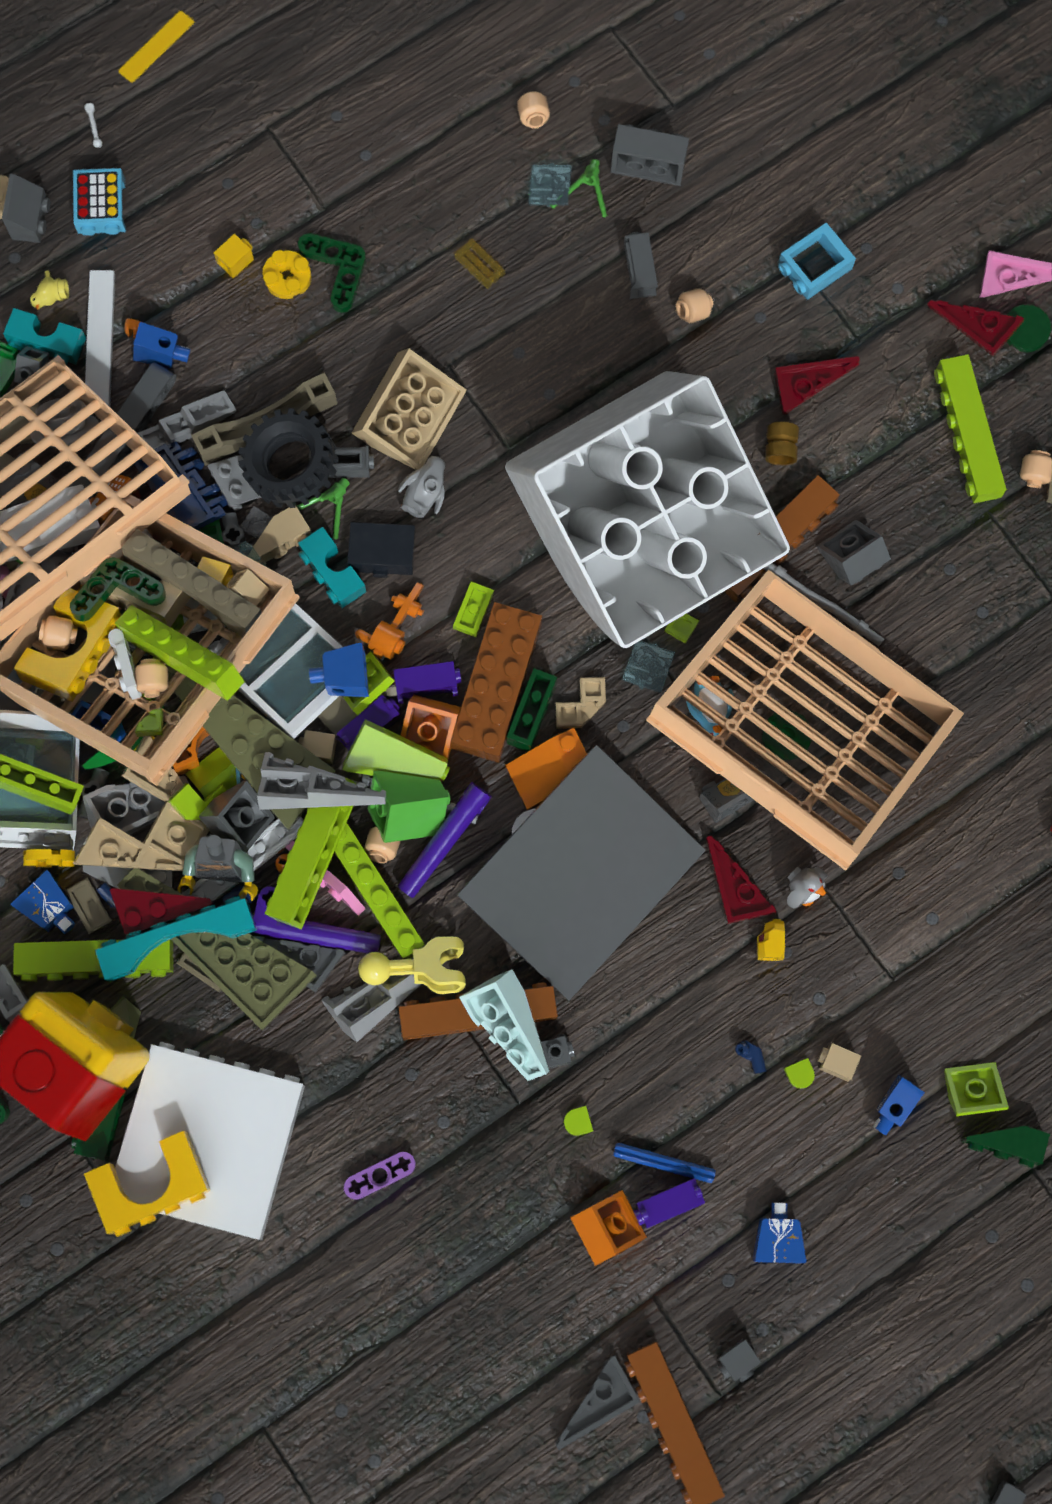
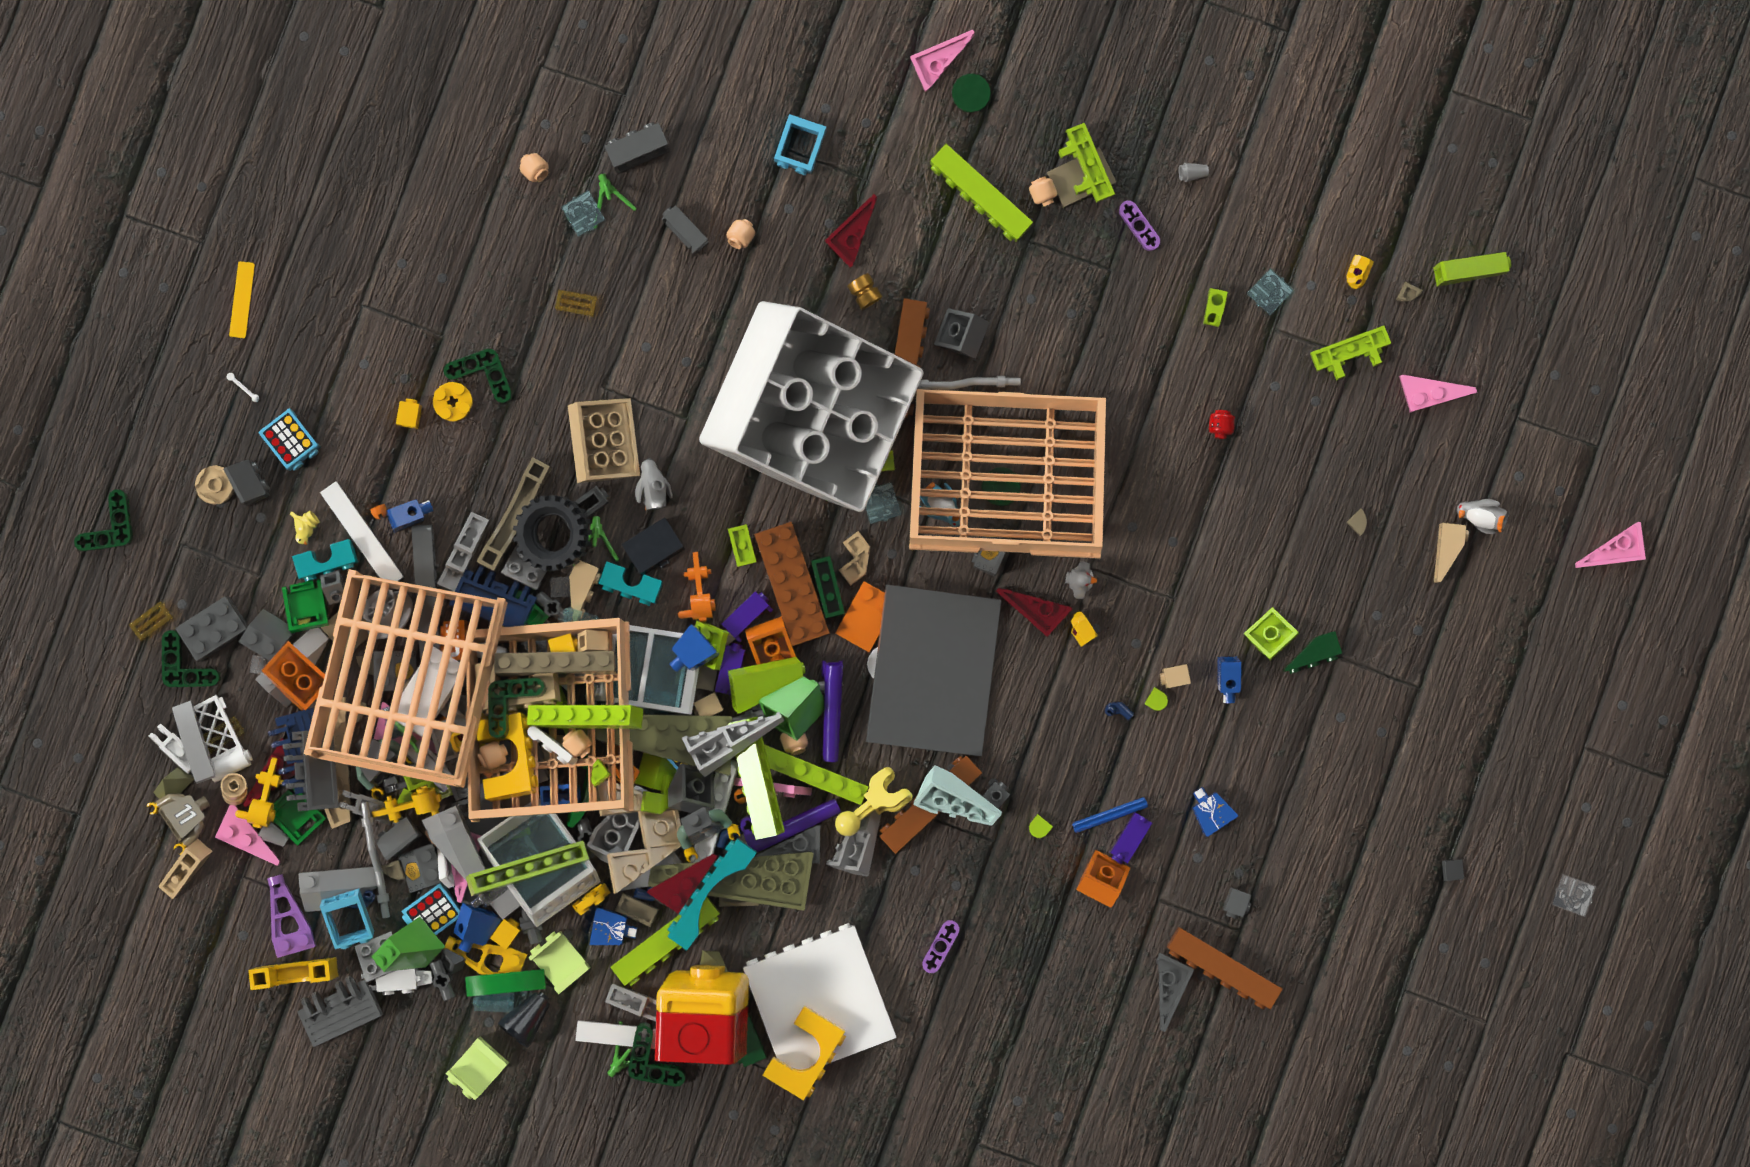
camera: 30 degrees left, 10 degrees up
(985, 328) = (943, 113): dark red wing -> none

